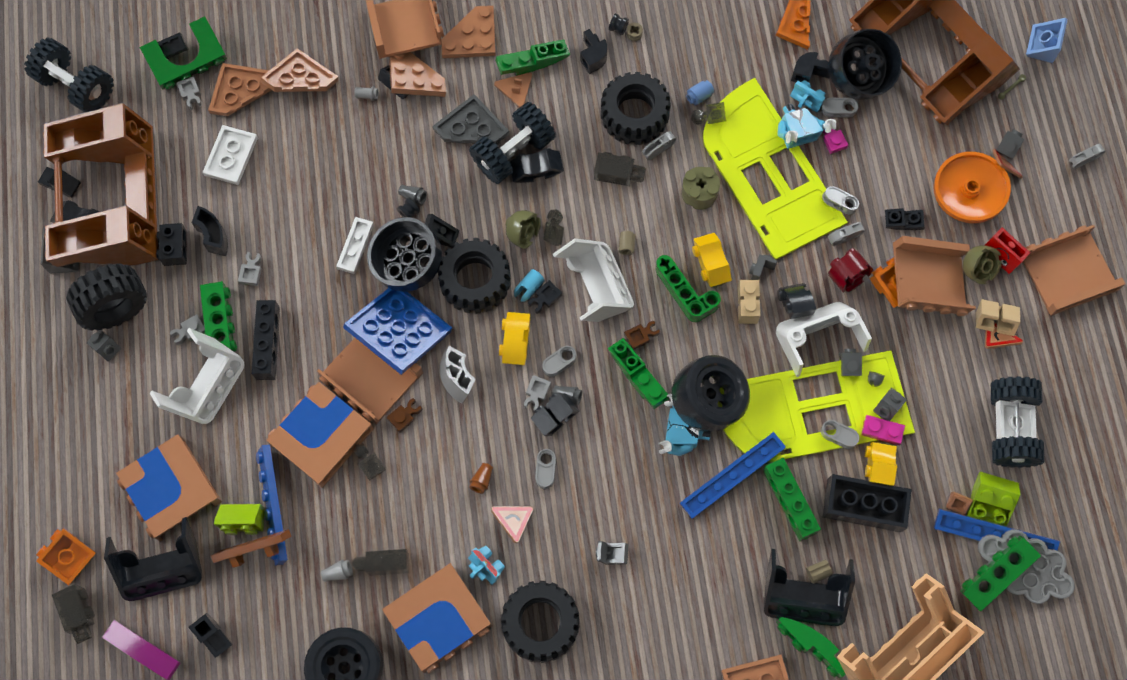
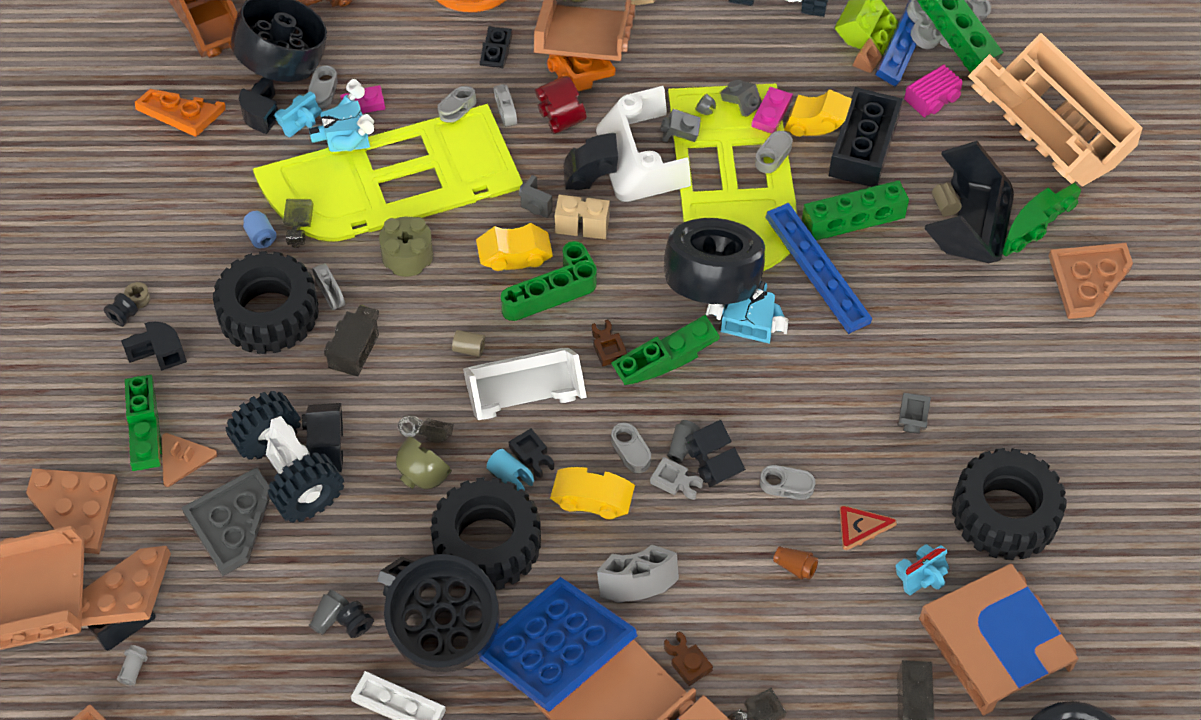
camera: 85 degrees left, 15 degrees down
(930, 557) = (933, 91): none -> dark pink brick

